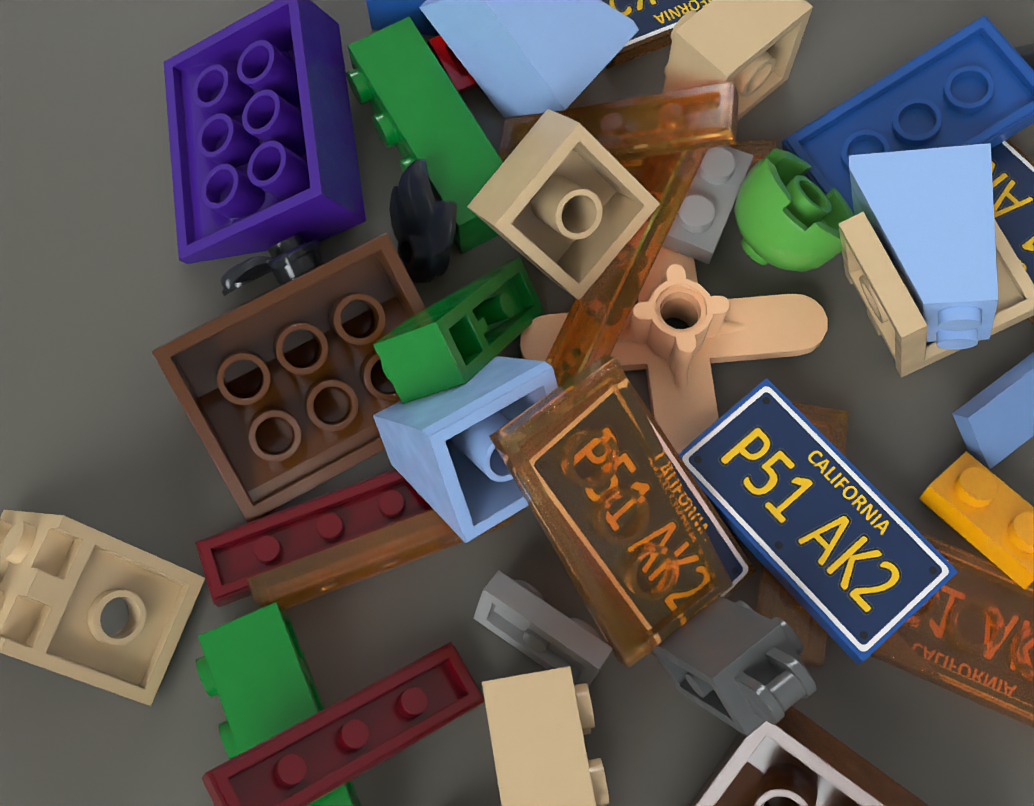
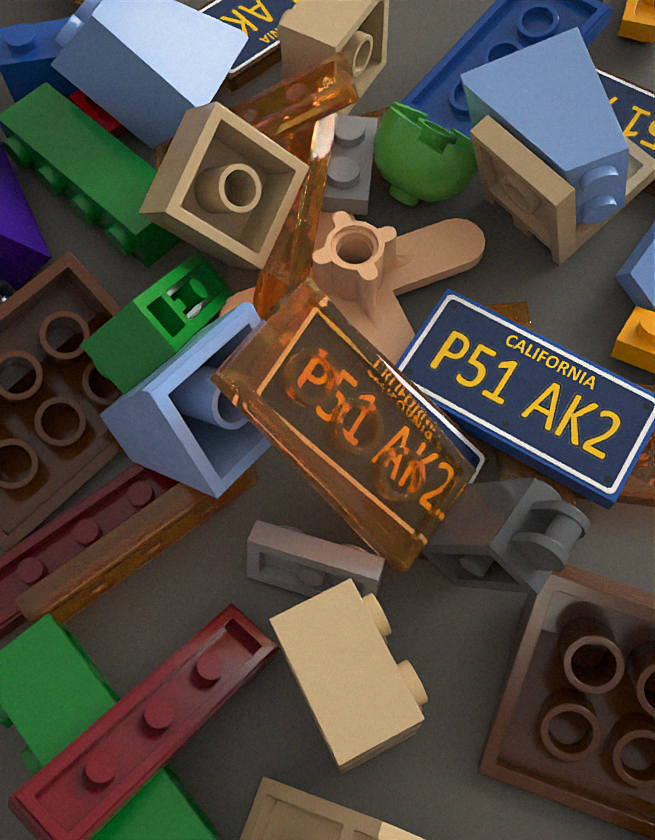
camera: 15 degrees left, 5 degrees down
(421, 224) = (103, 243): black plate -> none

